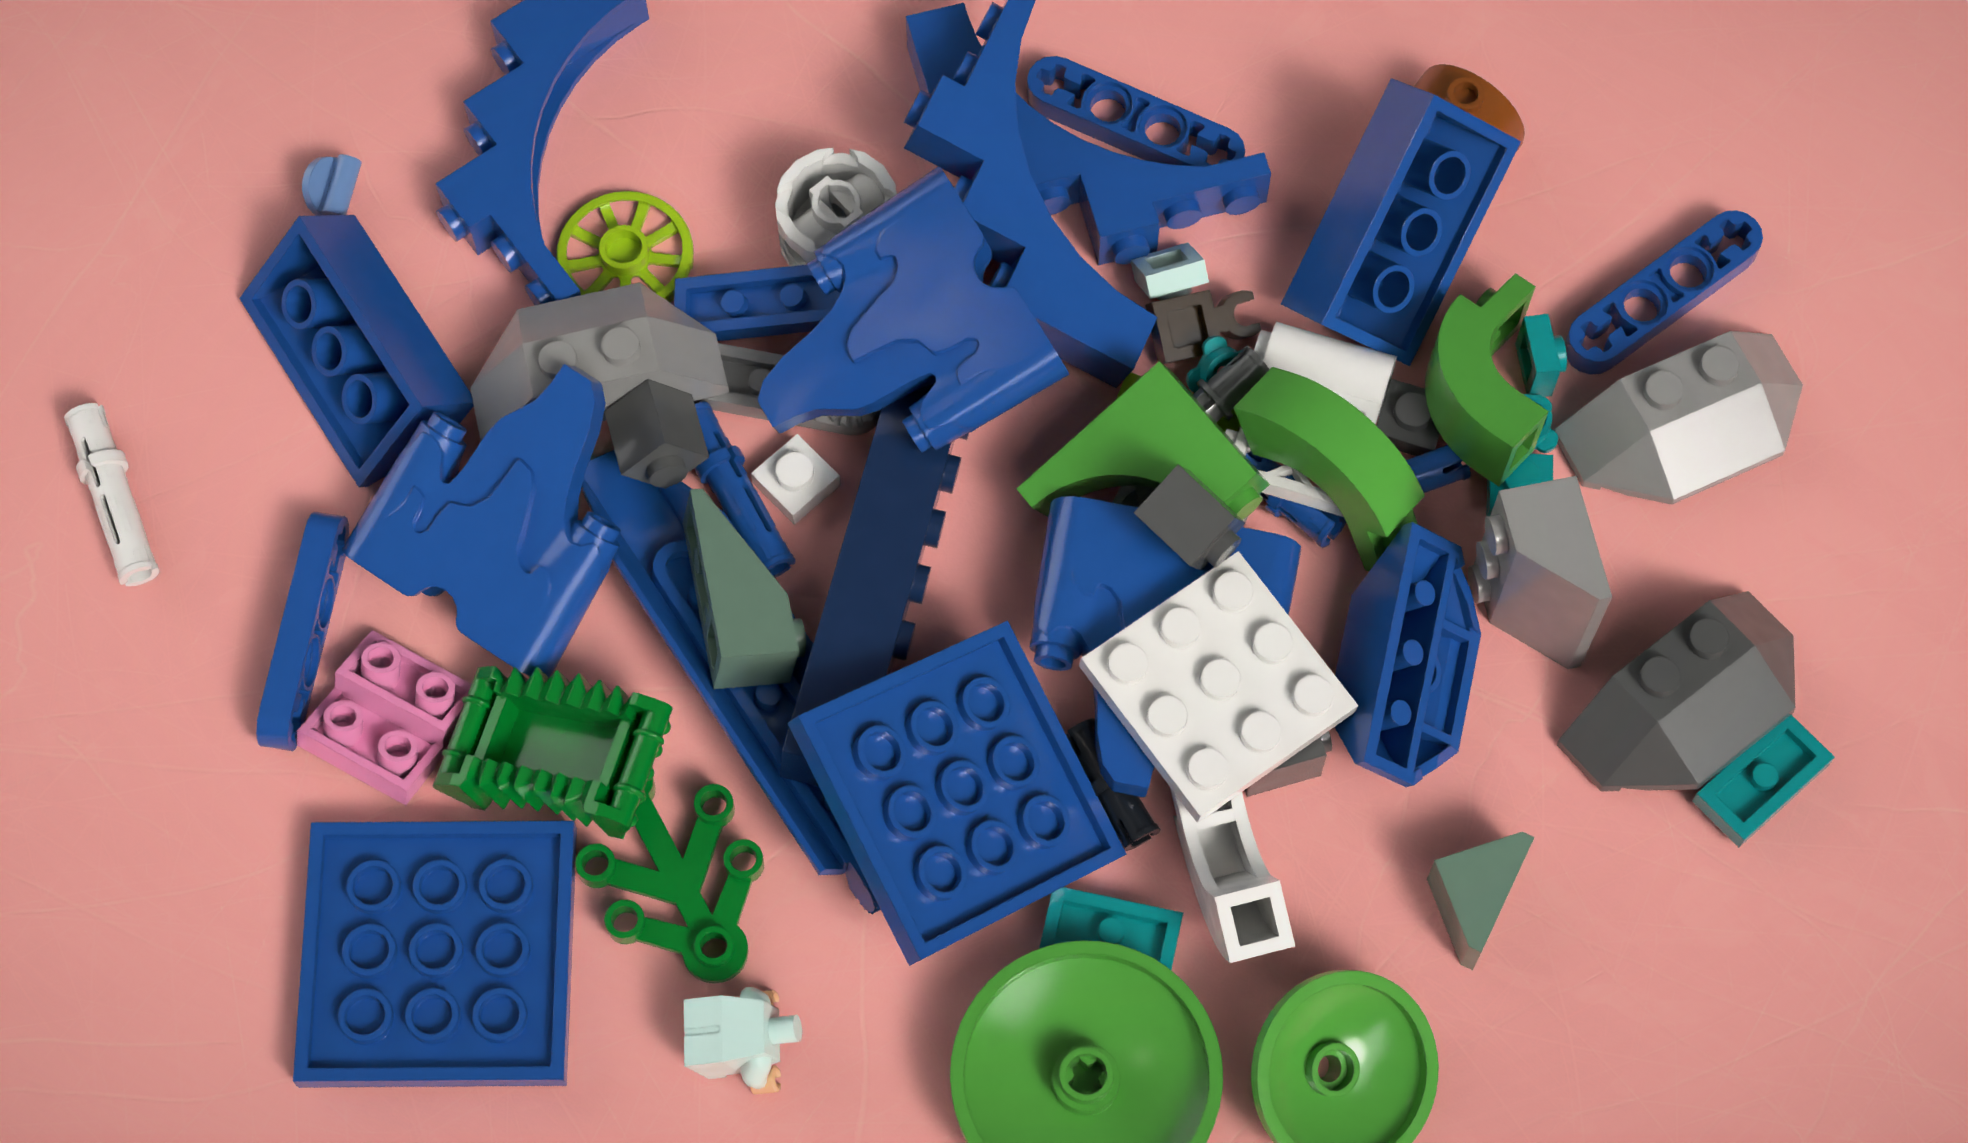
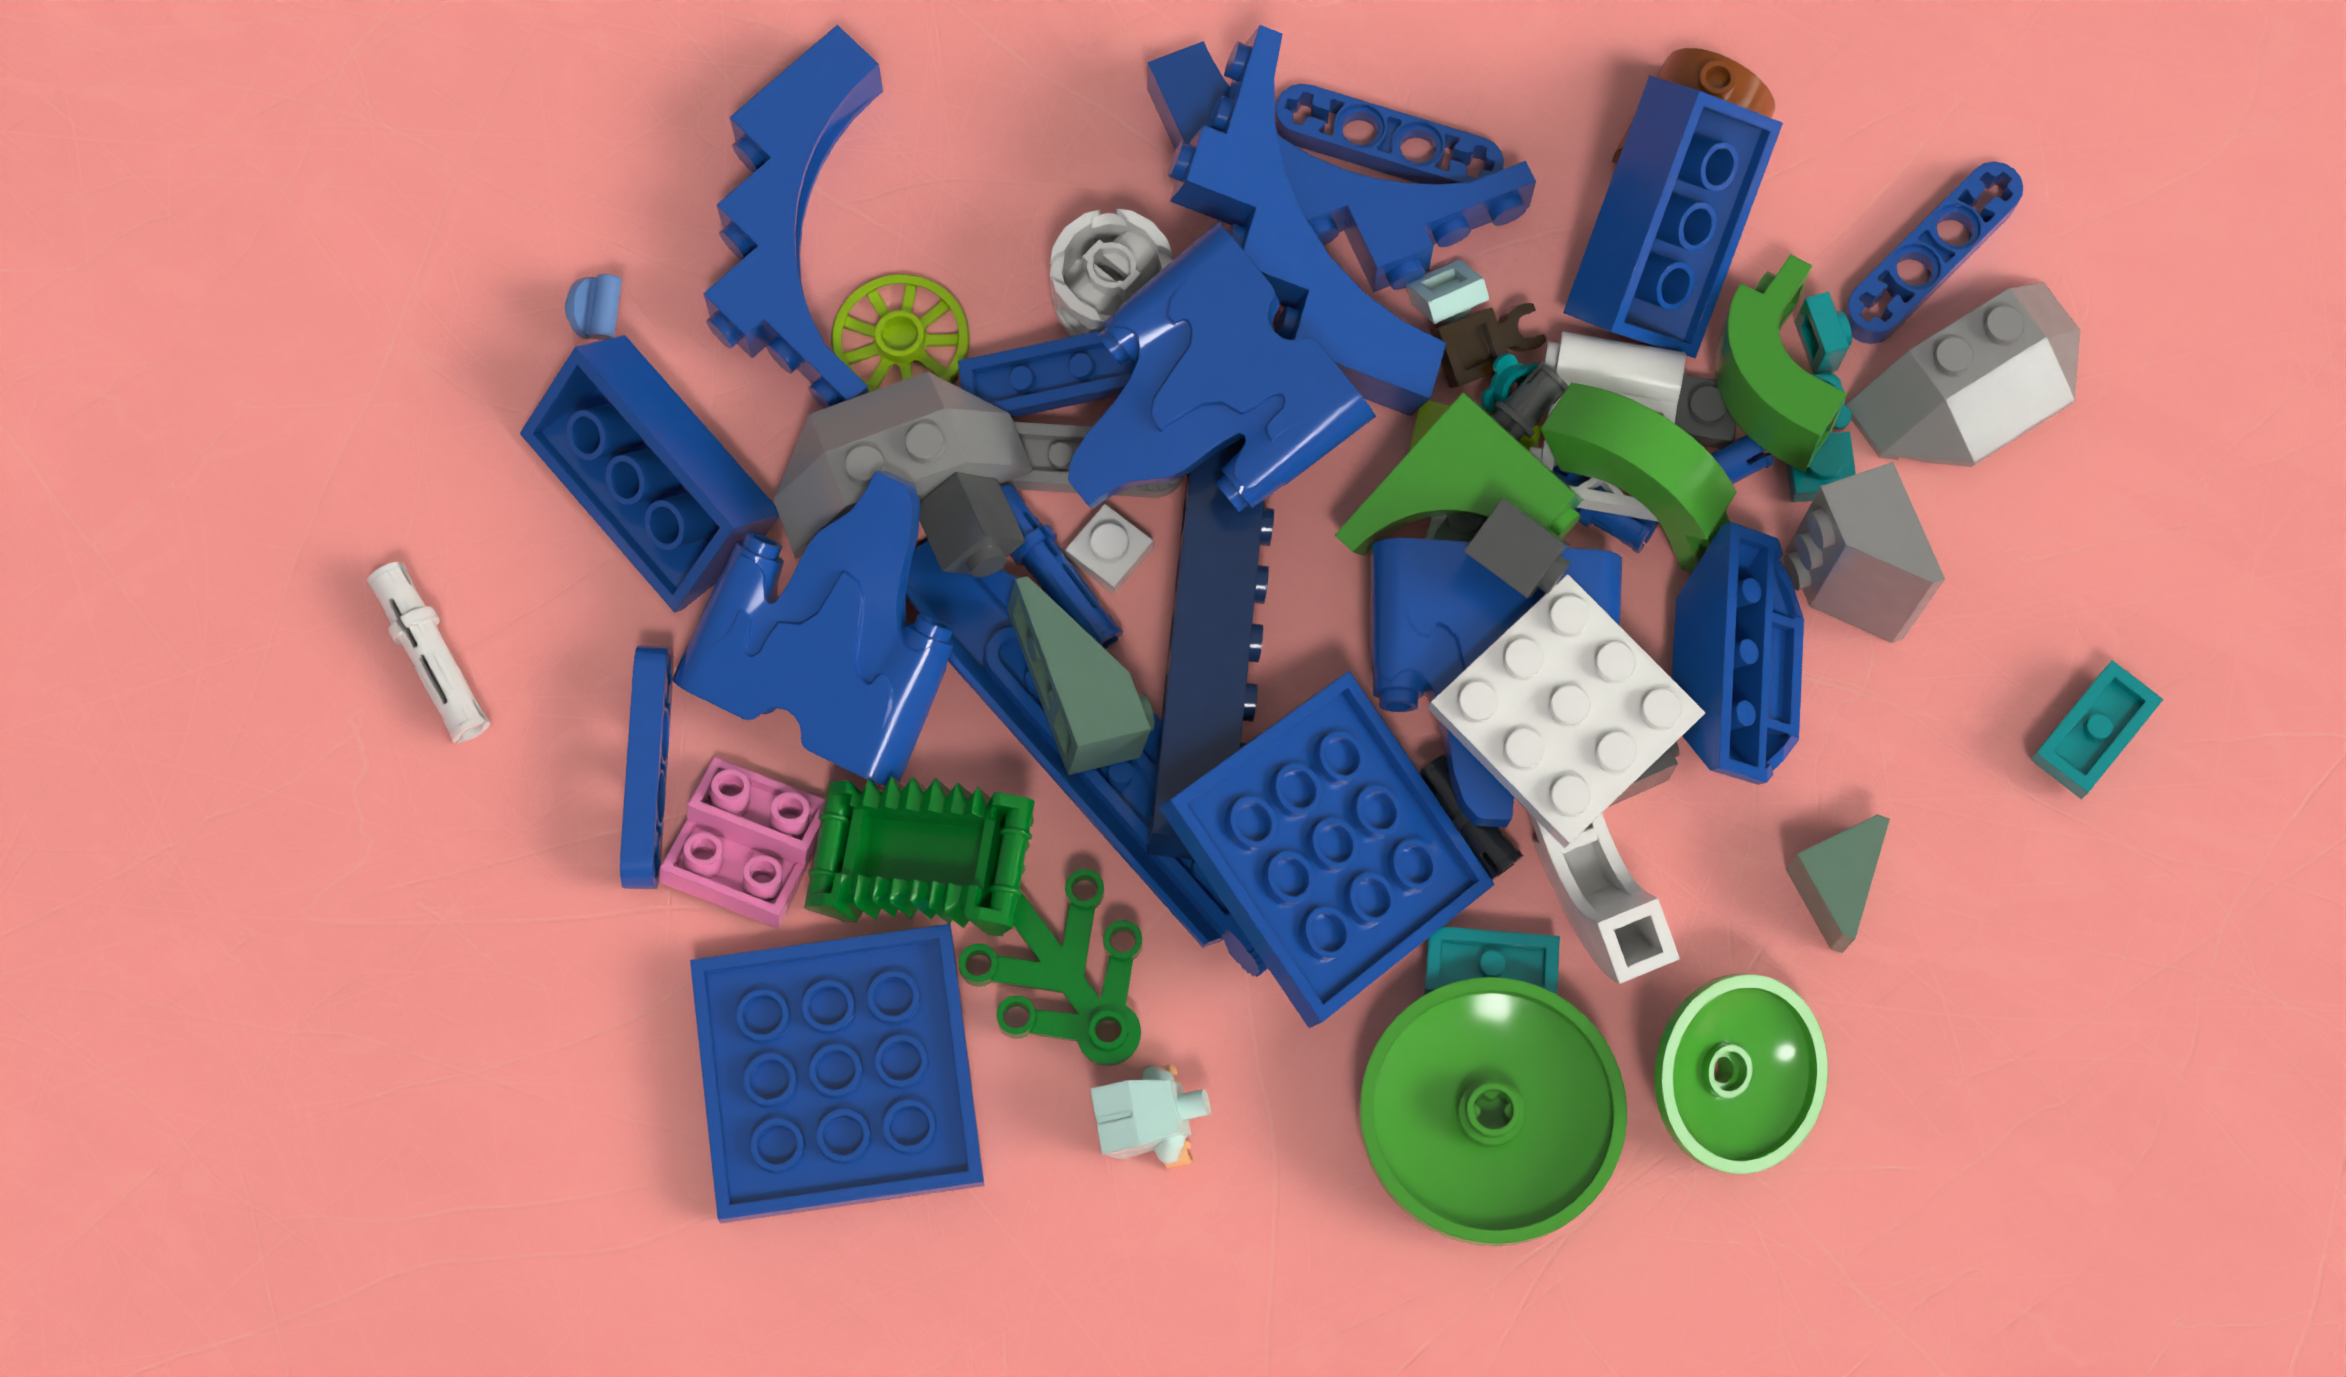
camera: 10 degrees left, 5 degrees up
(1688, 701) = (2016, 663): dark grey wedge -> none

